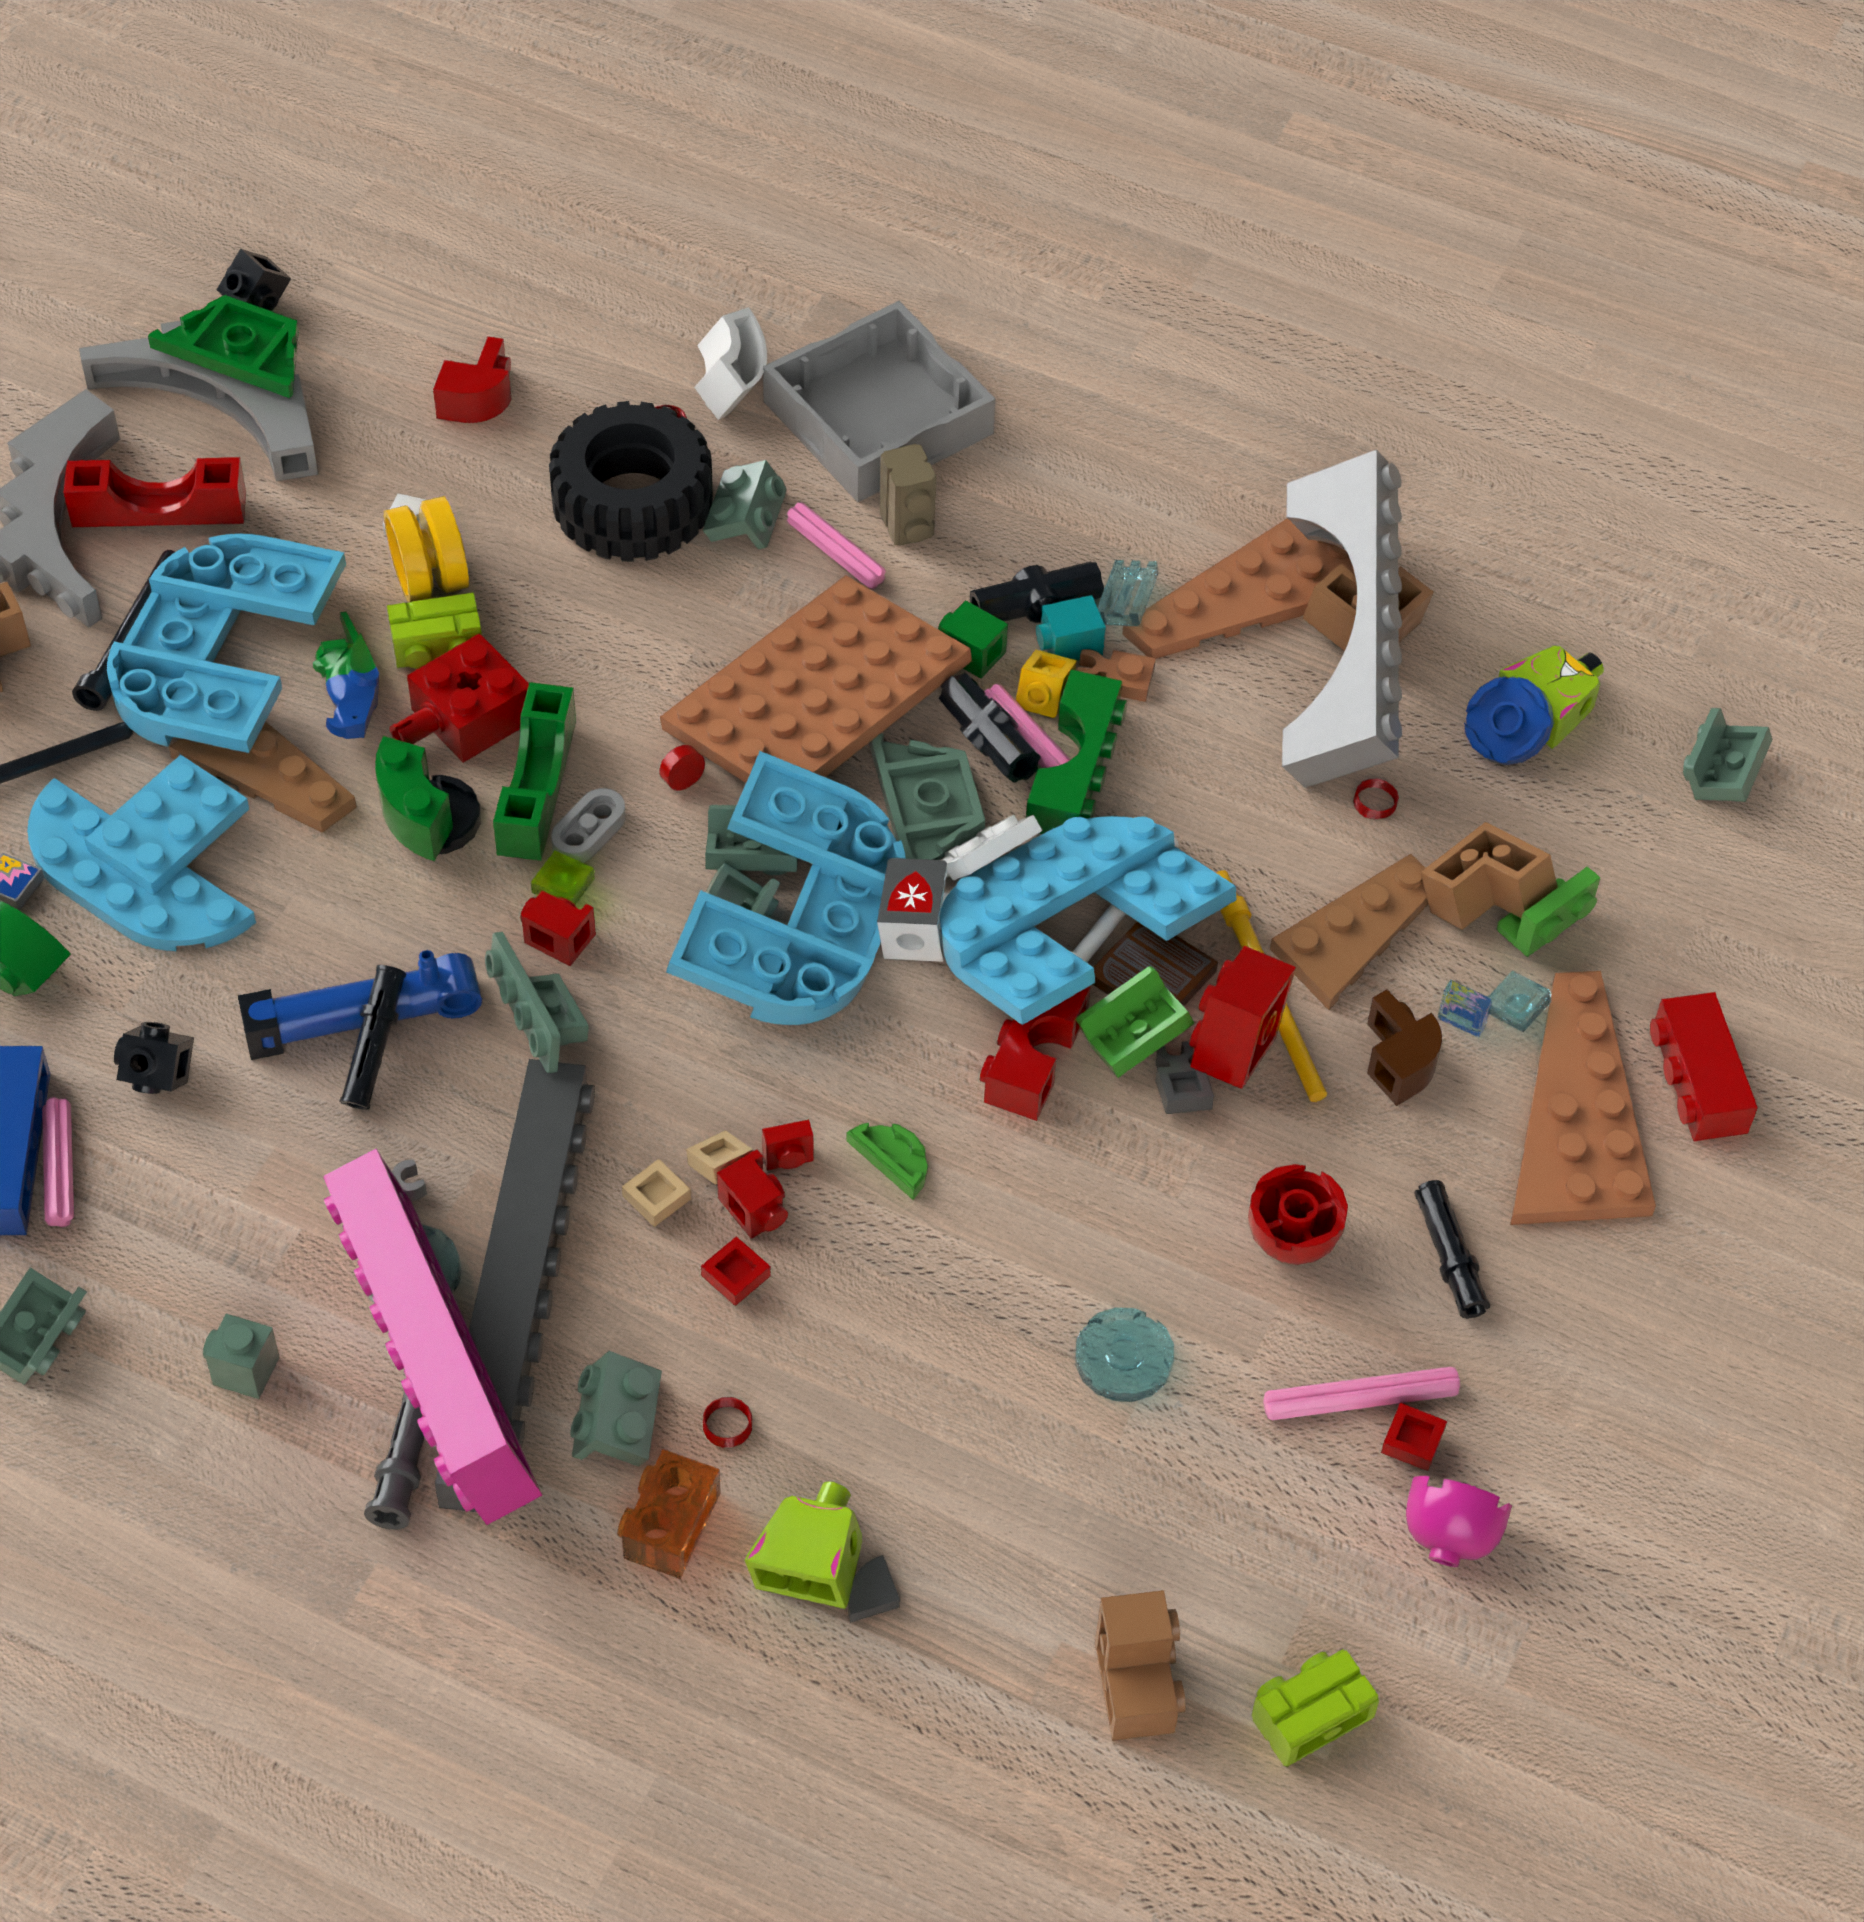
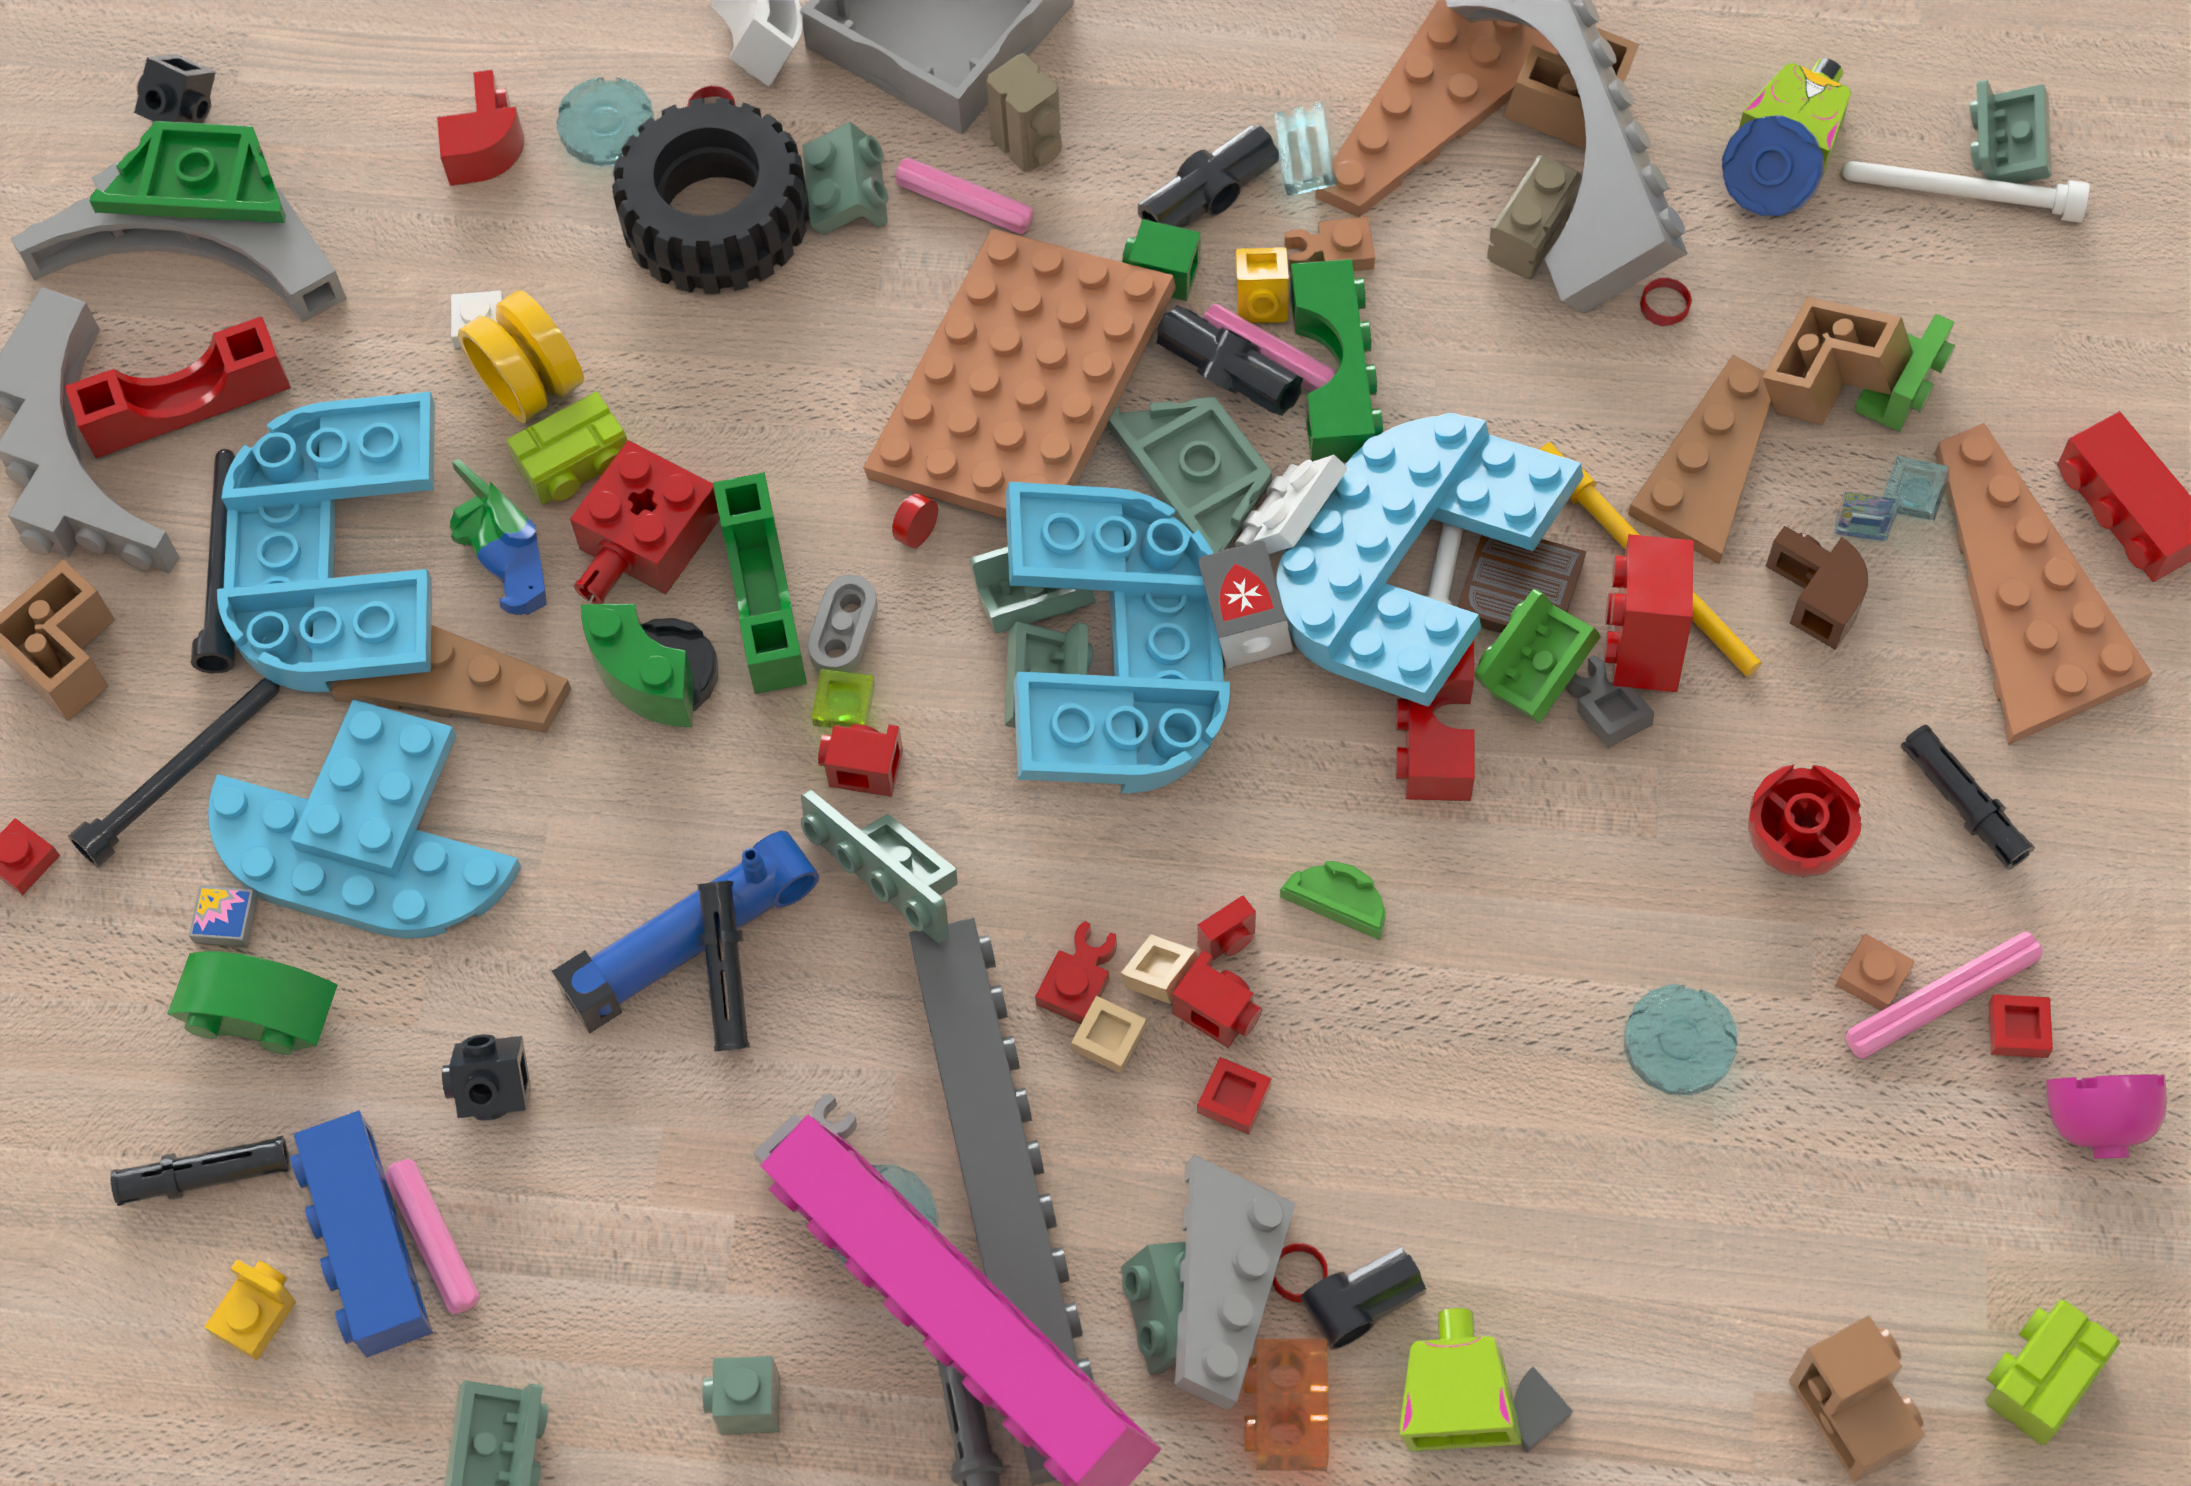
camera: 15 degrees left, 10 degrees up
(572, 396) = (600, 118): none -> clear light blue tile
(652, 1142) = (1076, 979): none -> red plate
(665, 1391) = (1226, 1277): none -> light grey wing
(754, 1456) = (1349, 1304): none -> black piece
(1071, 627) = (1265, 212): teal brick -> none
(1285, 696) = (1534, 217): none -> dark tan brick
(1311, 1357) = (1875, 972): none -> nougat plate
(1751, 824) = (2064, 200): none -> white piece

